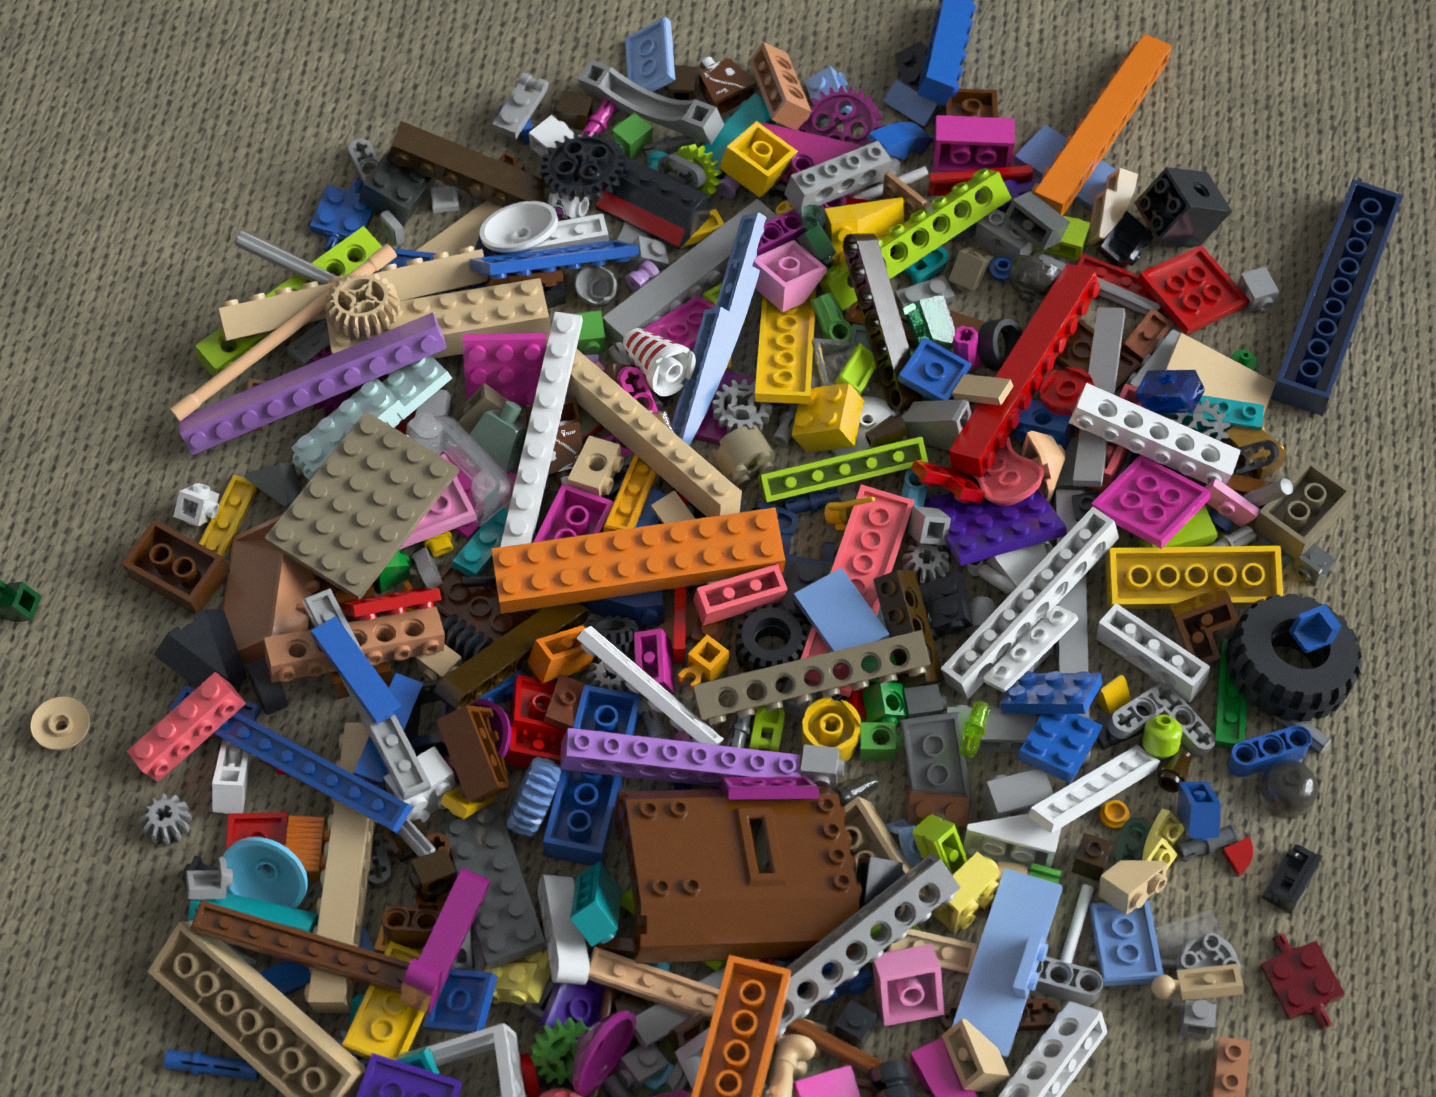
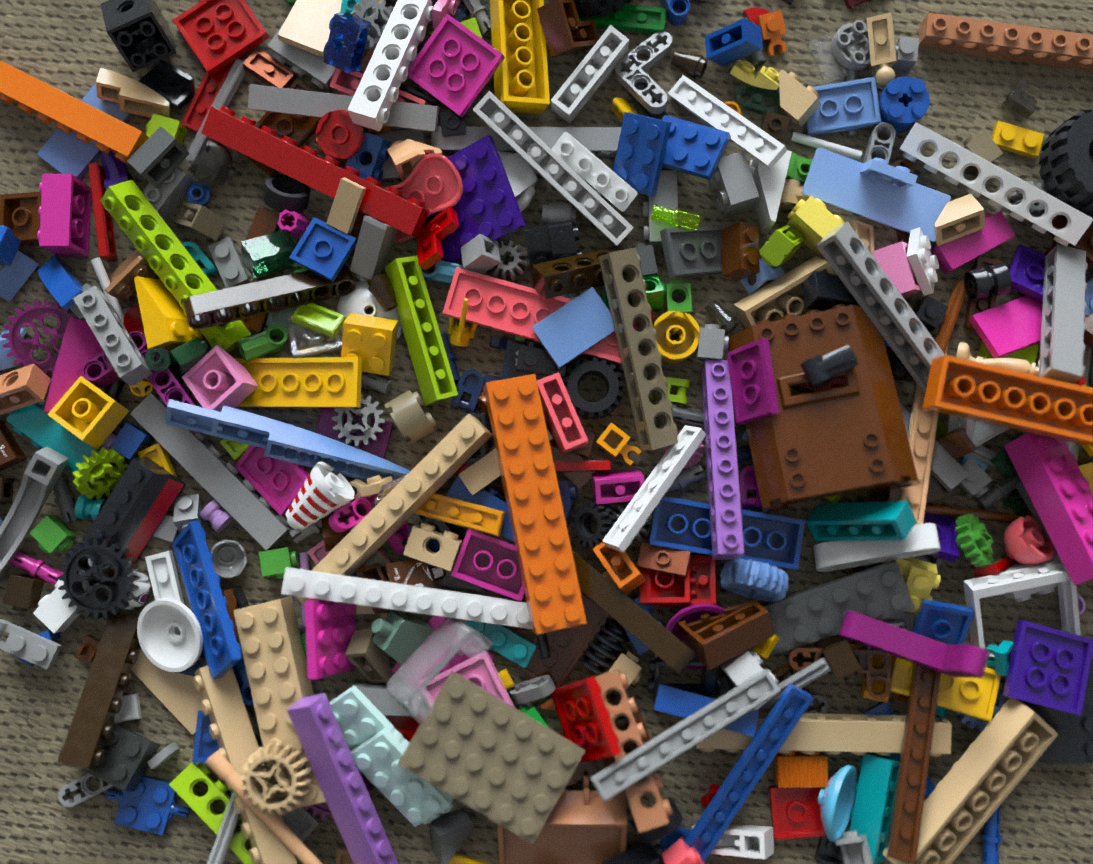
camera: 85 degrees left, 25 degrees up
(356, 670) = (672, 746): blue tile -> none
(601, 1051) = (987, 511): magenta dish -> none
(669, 406) = (371, 487): none -> tan plate
(682, 169) = (103, 483): dark grey beam -> none
(729, 200) = (130, 440): none -> blue panel
(779, 843) = (822, 369): none -> black piece
(920, 1009) = (922, 261): none -> white plate
(1142, 1001) = (903, 103): none -> blue brick
(1162, 736) = (664, 70): lime head -> none
(1225, 865) = (771, 29): none -> orange plate

